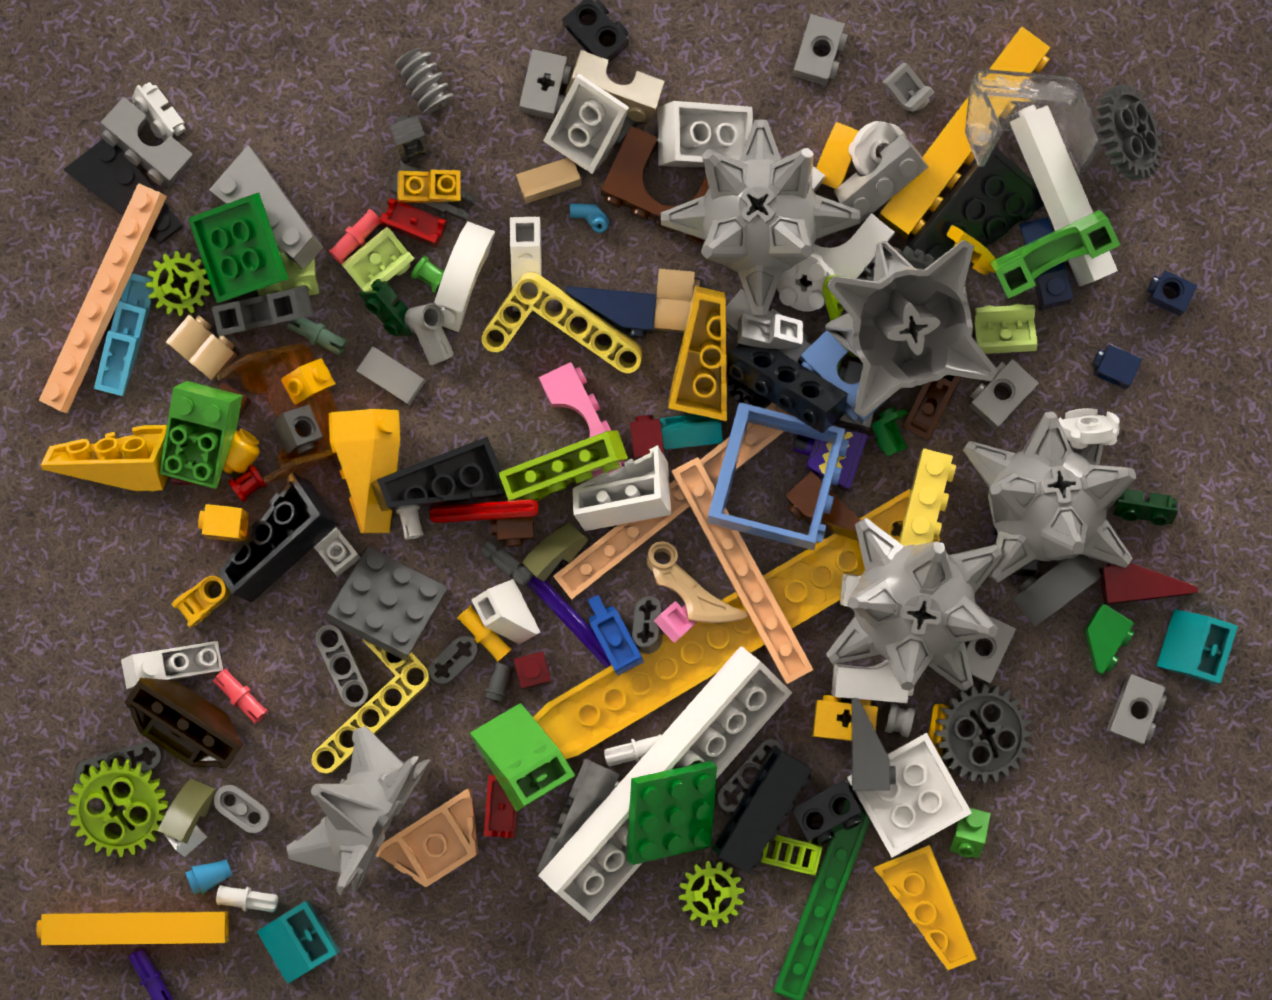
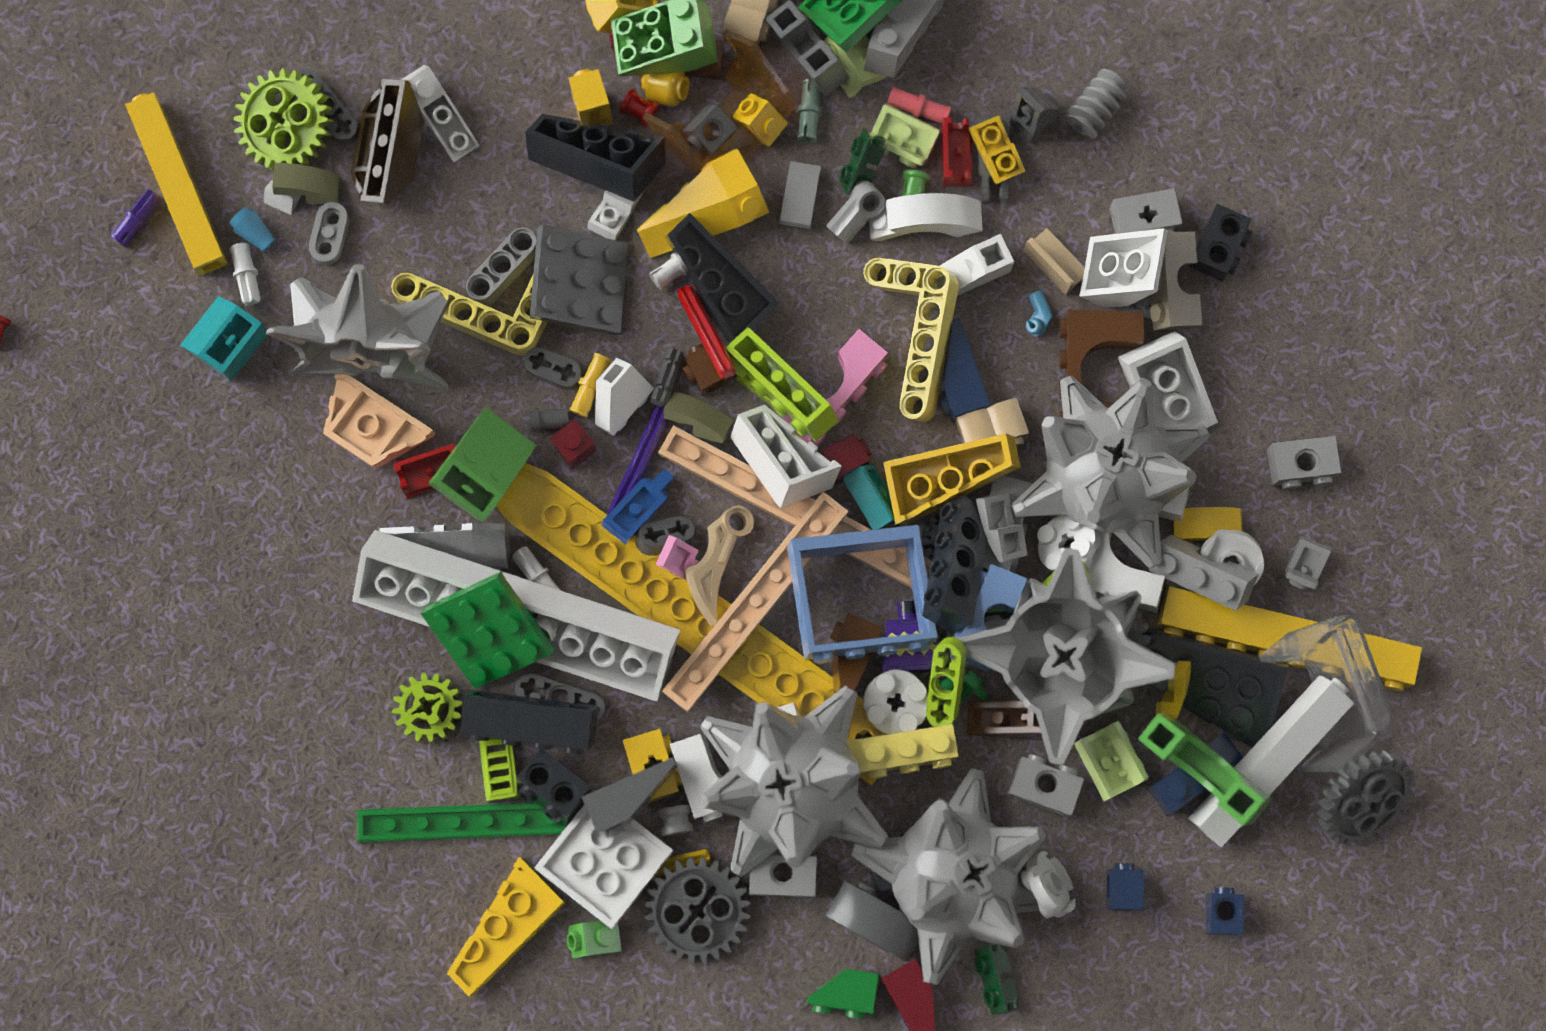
camera: 65 degrees right, 5 degrees down
(200, 601) = (507, 110): yellow piece -> none
(240, 696) = (435, 187): coral pin -> none
(881, 427) = (955, 672): none -> lime beam
(897, 487) = (885, 686): none -> white plate

